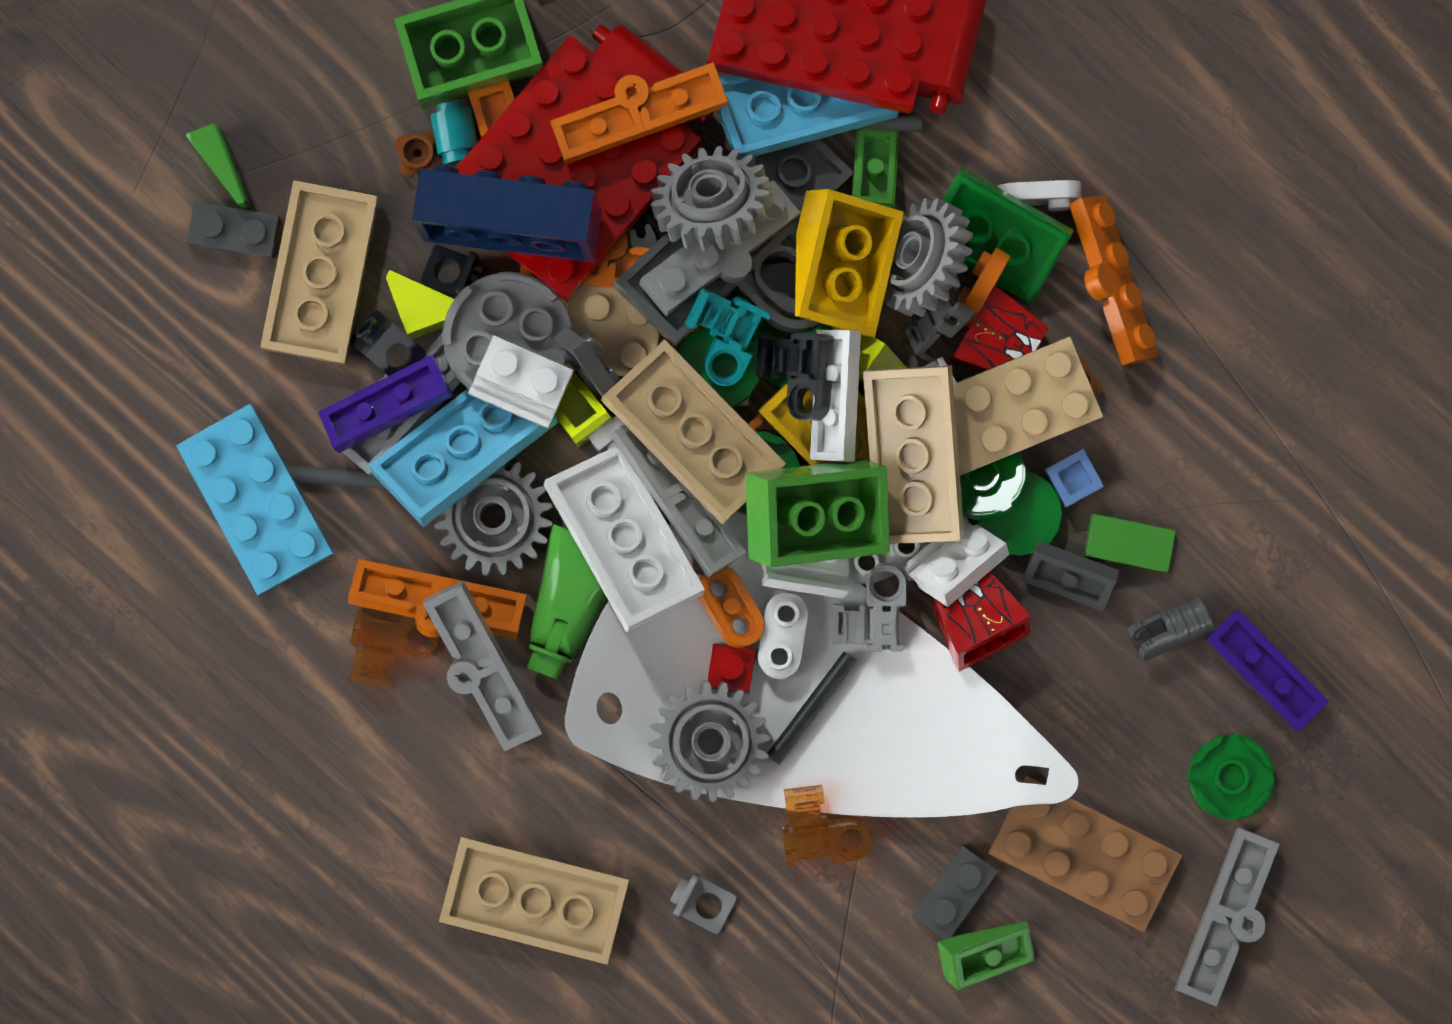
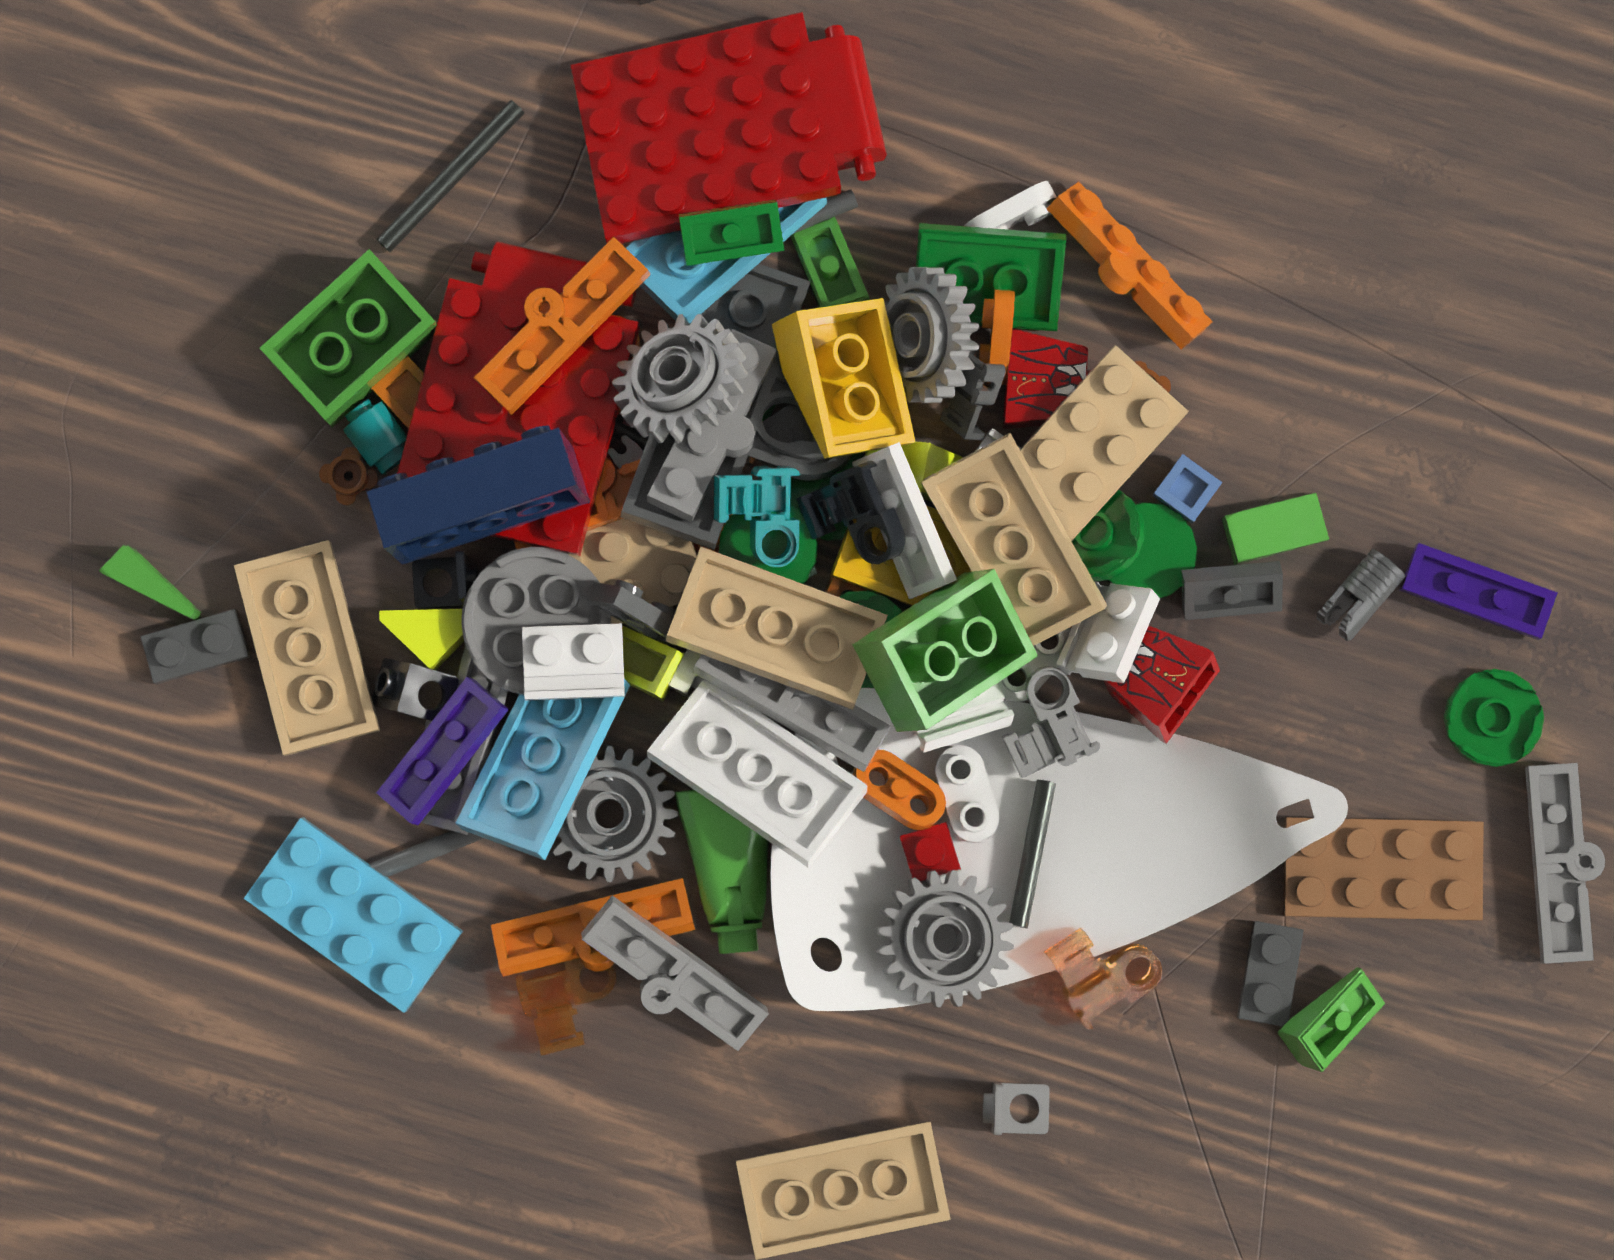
camera: 30 degrees left, 0 degrees up
(808, 103) = (731, 232): none -> green plate

